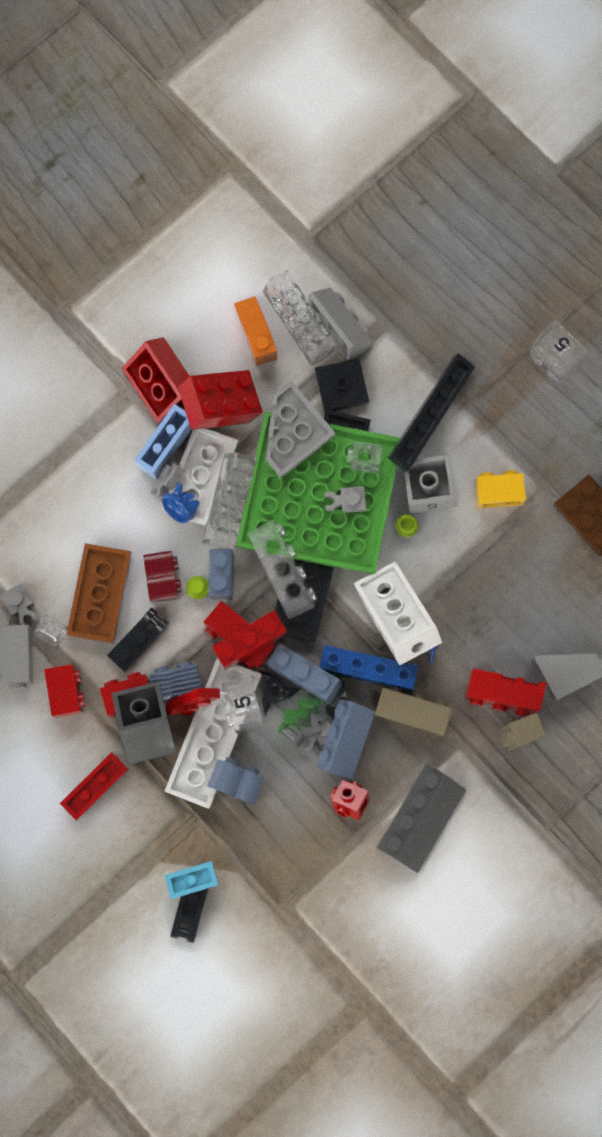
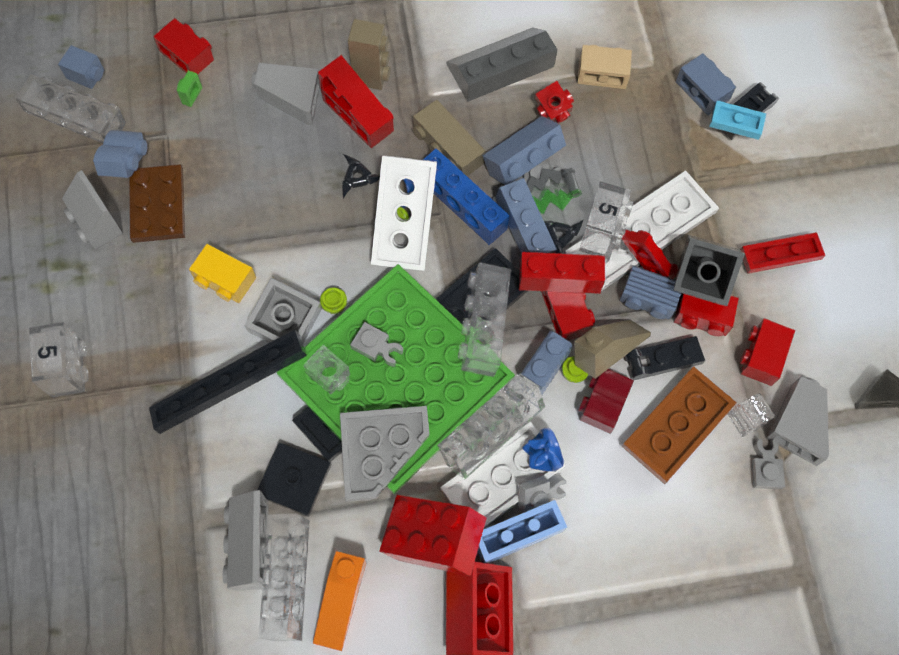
camera: 150 degrees left, 10 degrees down
(182, 617) = (607, 345): none -> dark tan slope
(236, 781) = (648, 174): sand blue brick -> none
(238, 908) = (705, 83): none -> sand blue brick
(332, 868) = (604, 66): none -> tan brick
(464, 629) = (353, 168): none -> black piece

